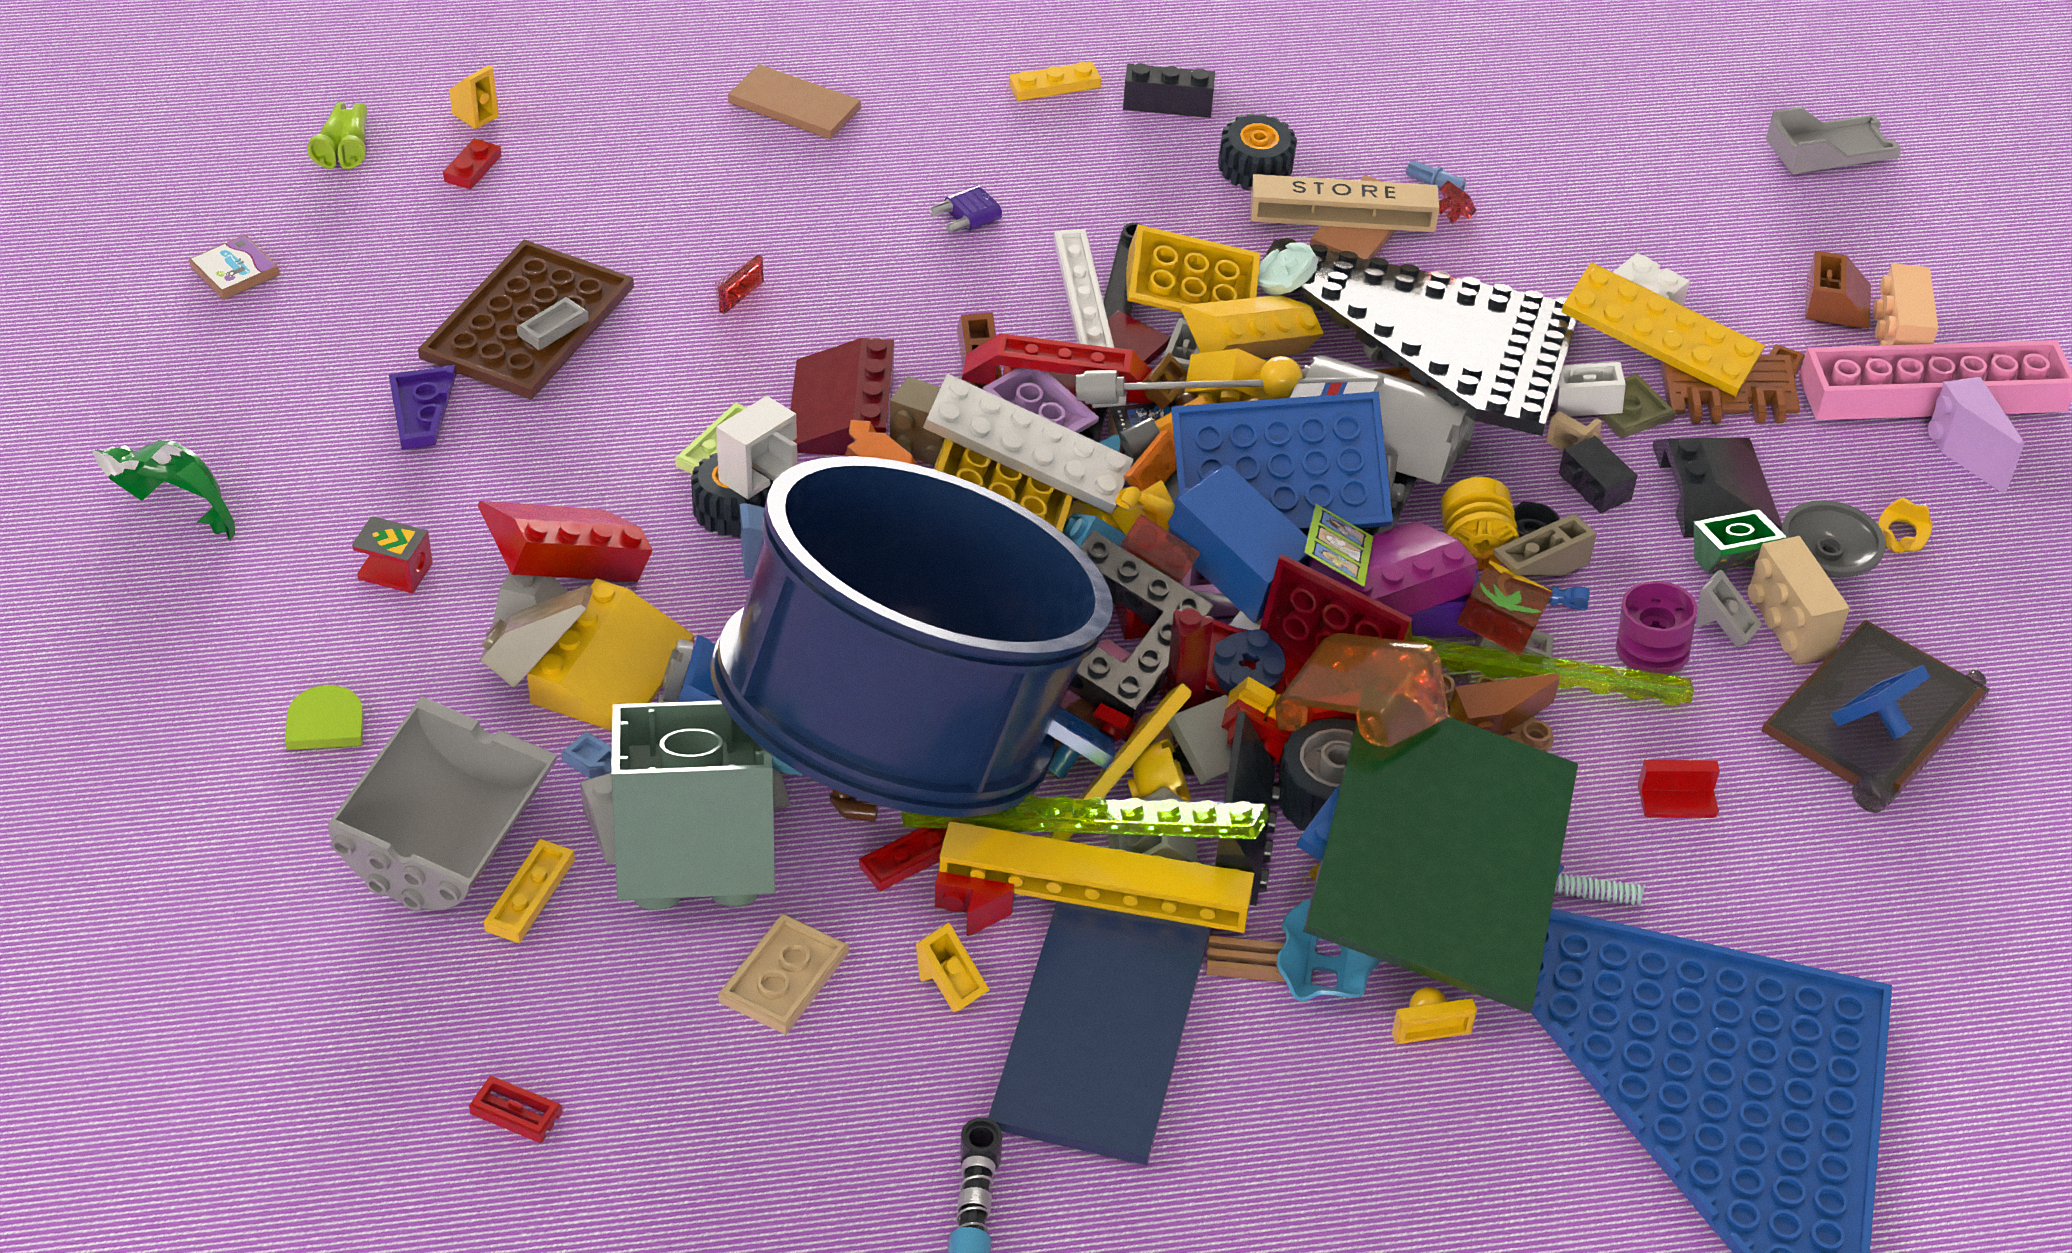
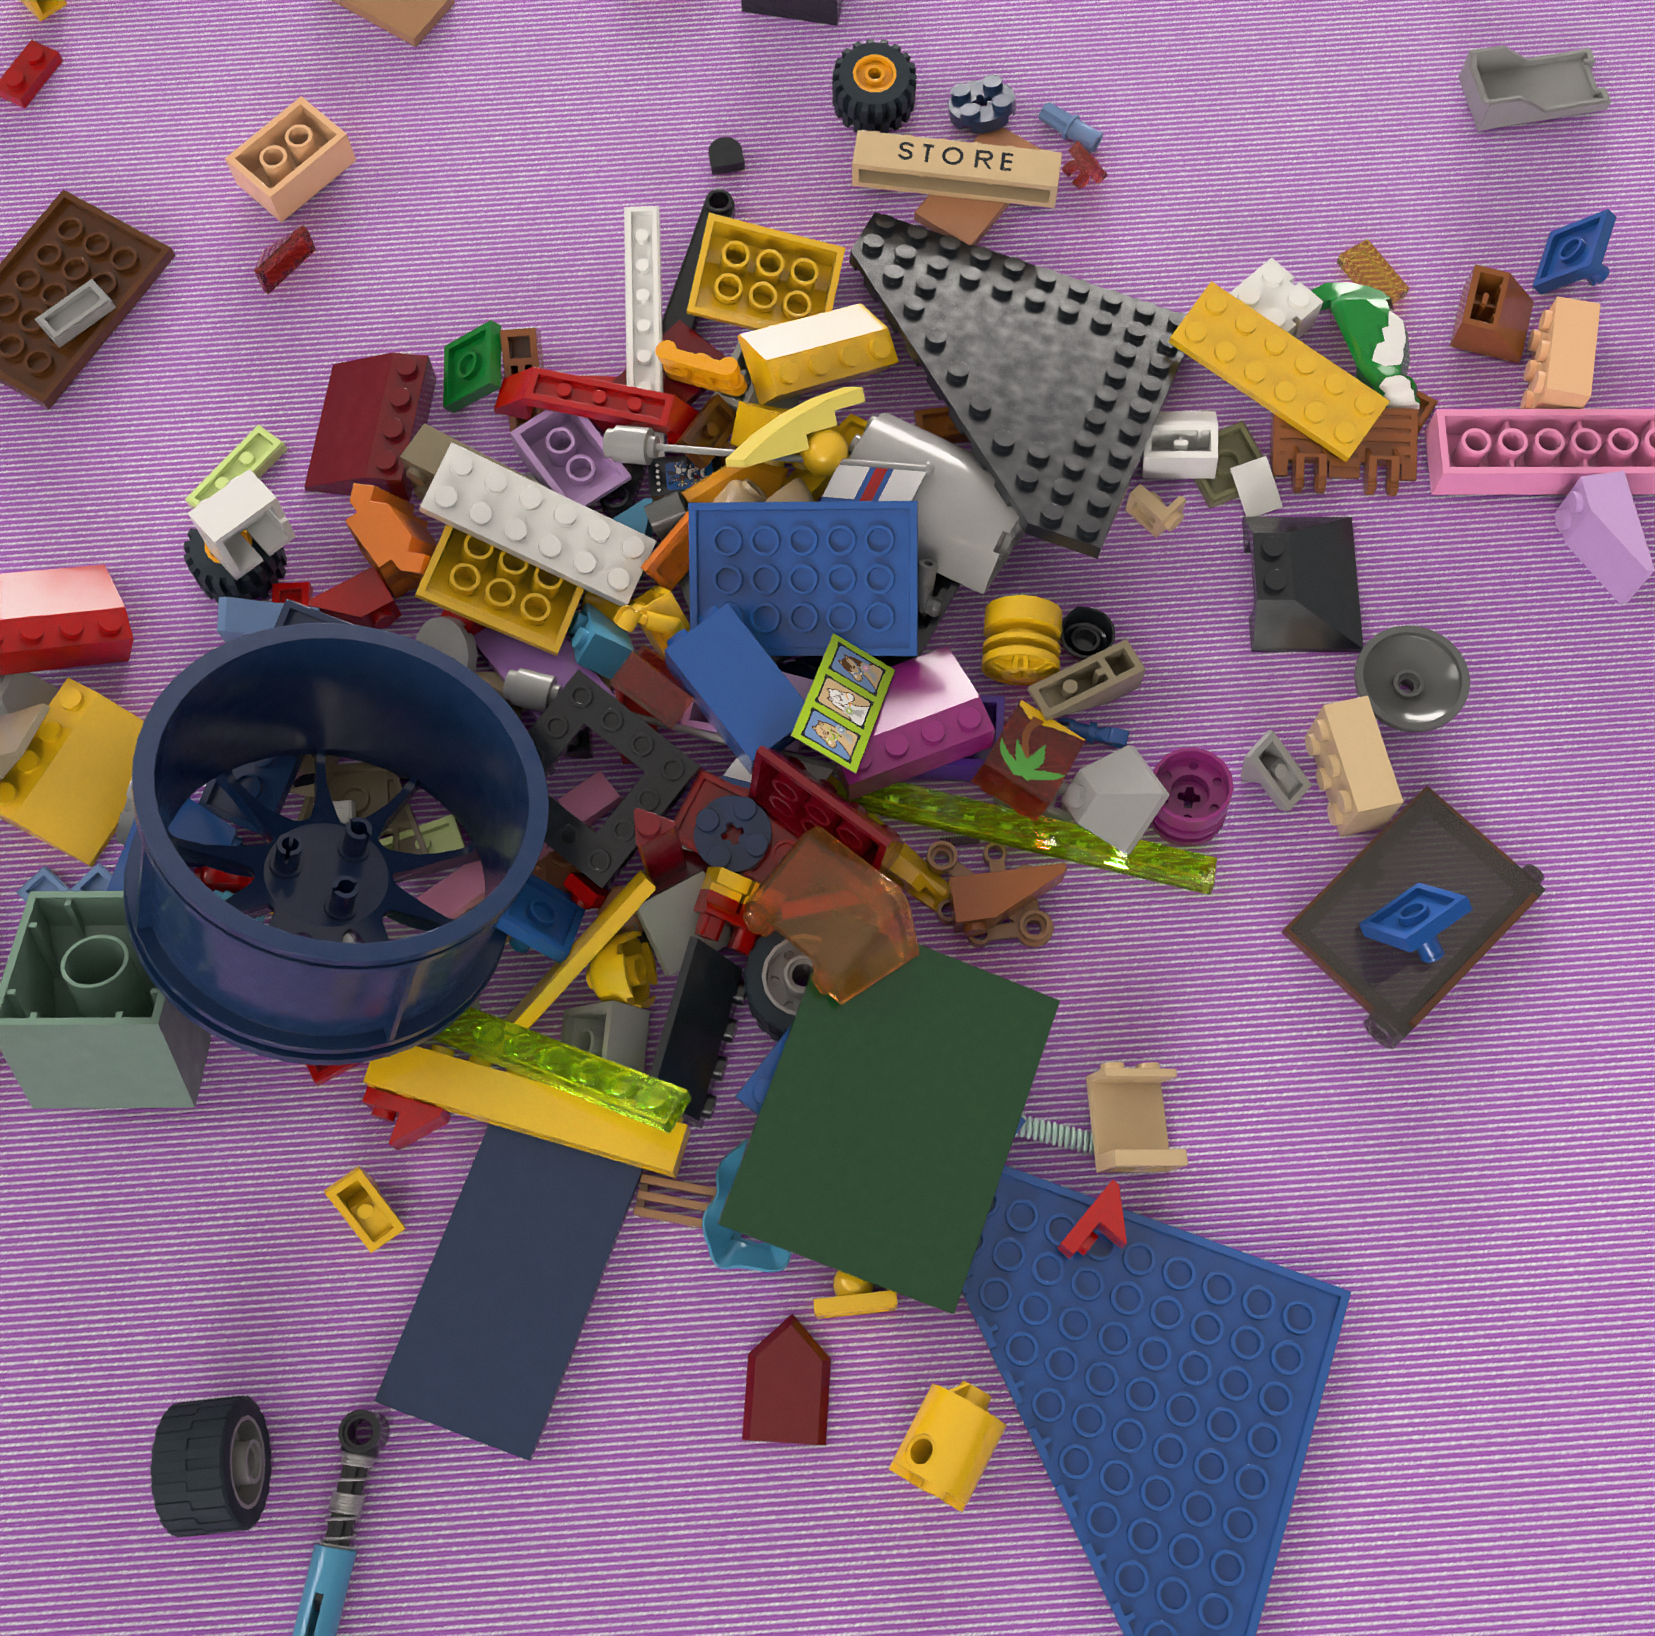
camera: 10 degrees right, 25 degrees up
(736, 211) = (291, 159): none -> light nougat brick
(783, 973) = (203, 1189): tan tile -> none
(846, 1160) = (211, 1466): none -> black wheel
(934, 348) = (472, 366): none -> green plate
(970, 209) = (550, 154): dark purple piece -> none
(1131, 205) = (725, 156): none -> black tile
(1152, 334) = (701, 369): none -> light orange plate
(1254, 357) = (788, 431): none -> light yellow slope
(1287, 269) = (871, 271): light aqua tile -> none
(1356, 162) = (967, 101): none -> plate
(1381, 1097) = (787, 1388): none -> dark red tile
(1549, 1113) = (949, 1443): none -> yellow cylinder
(1592, 625) = (1116, 798): none -> light grey slope
(1597, 474) = (1169, 568): black brick -> none
(1650, 933) = (1104, 1215): none -> red slope
(1656, 868) = (1131, 1119): none -> tan panel
(1660, 417) = (1256, 487): none -> white sticker
(1679, 788) = (1175, 1010): red panel -> none
(1726, 272) = (1369, 268): none -> clear yellow tile
(1732, 540) = (1302, 677): green slope -> none
(1743, 306) = (1374, 339): none -> green animal
(1899, 245) = (1576, 253): none -> blue tile
(1908, 512) = (1516, 648): yellow piece -> none

